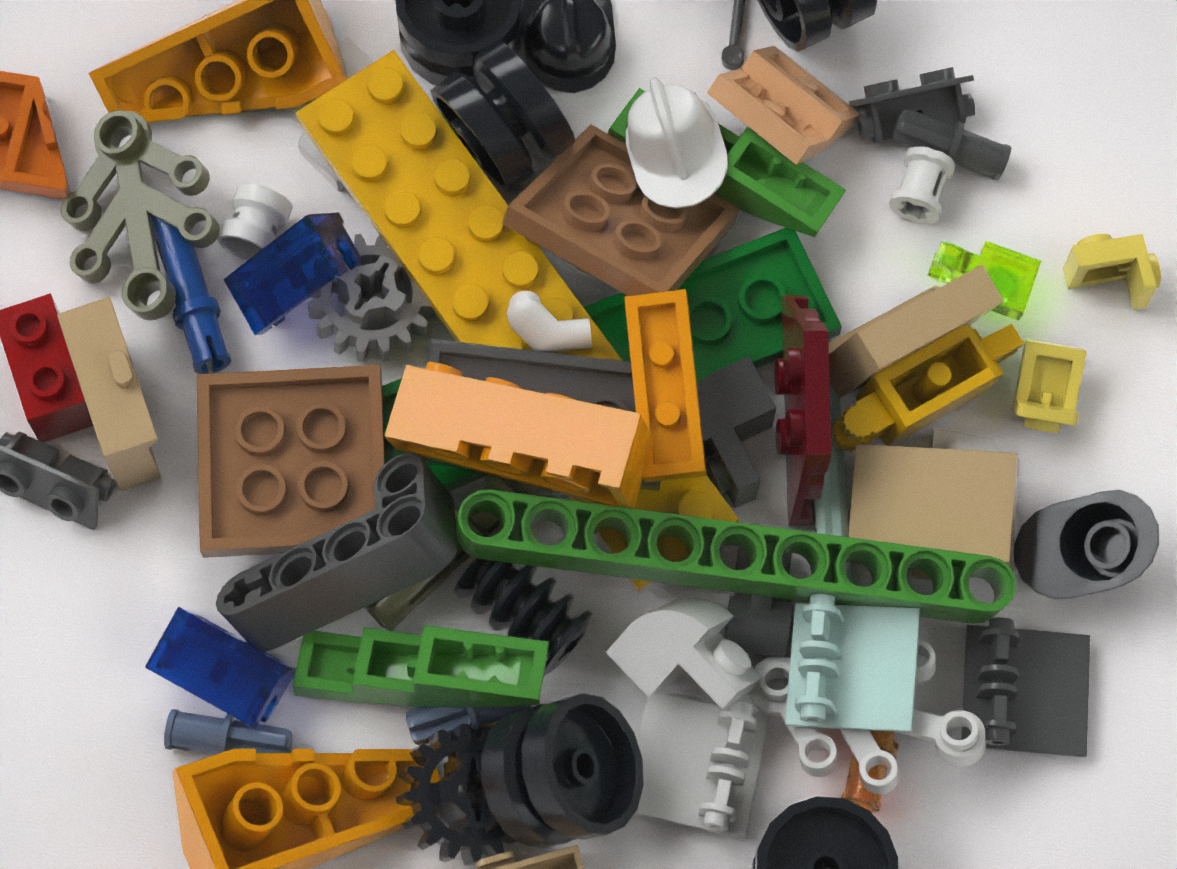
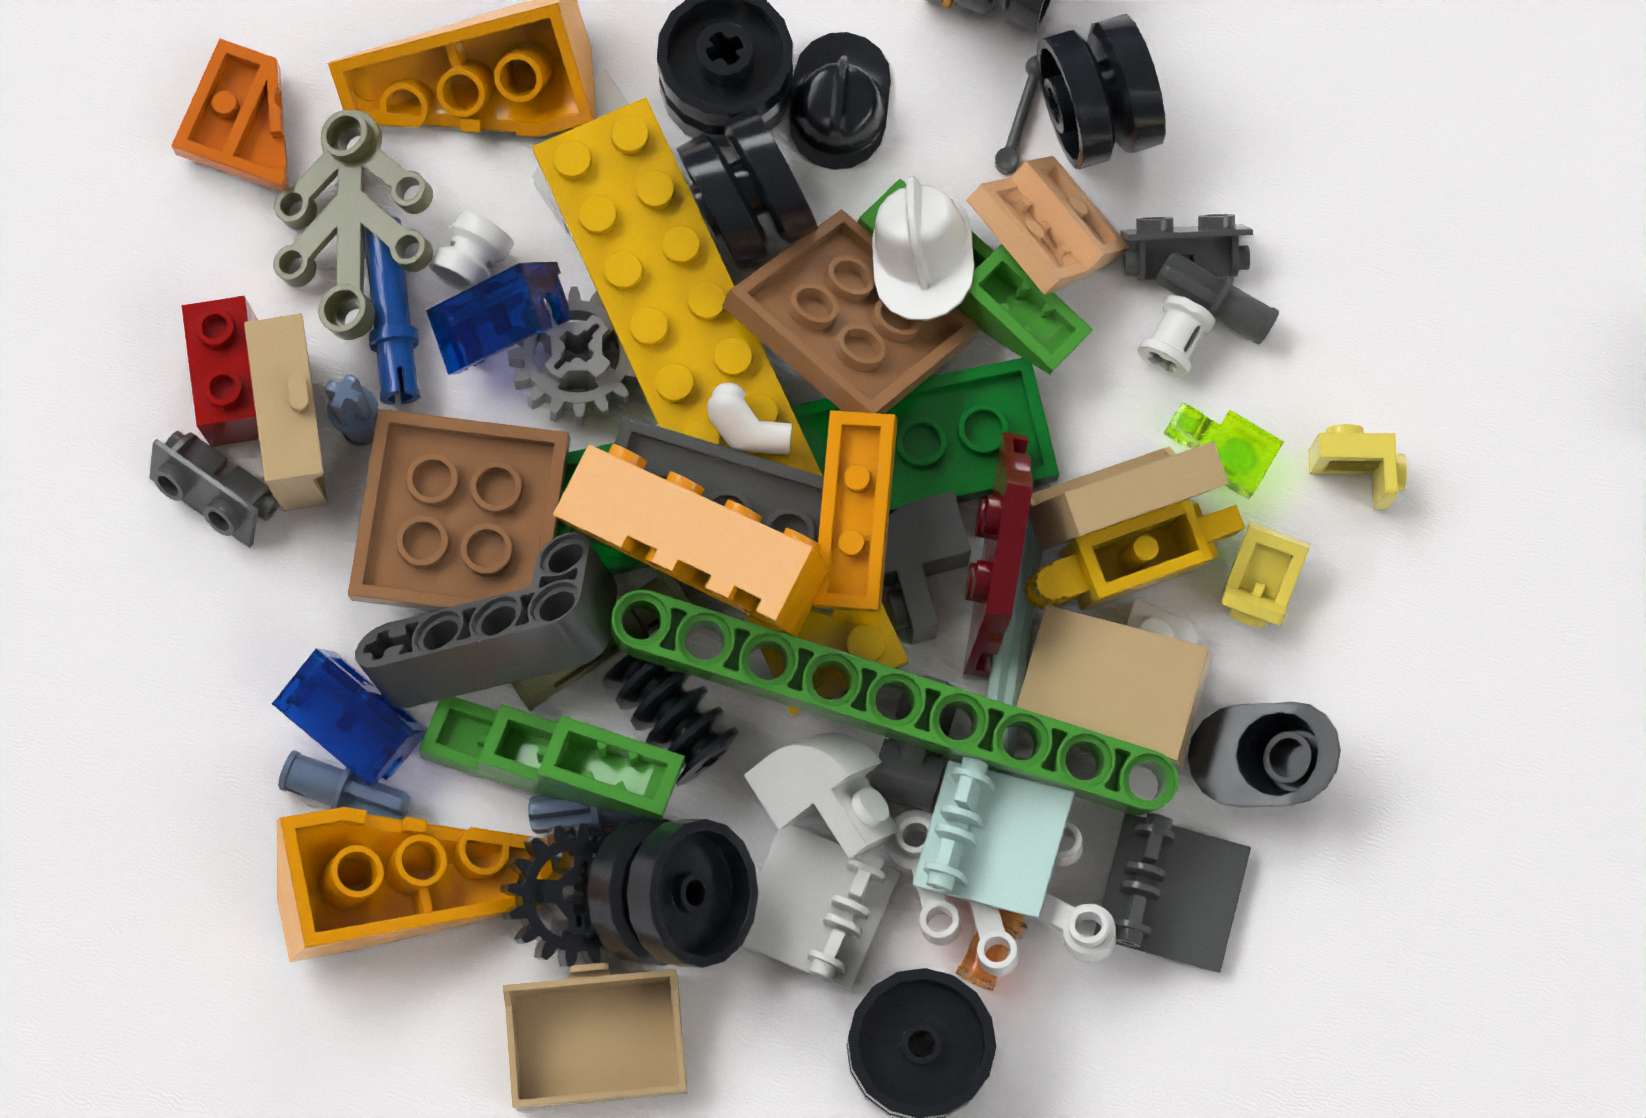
camera: 10 degrees right, 5 degrees up
(171, 382) = (352, 410): none -> sand blue axle

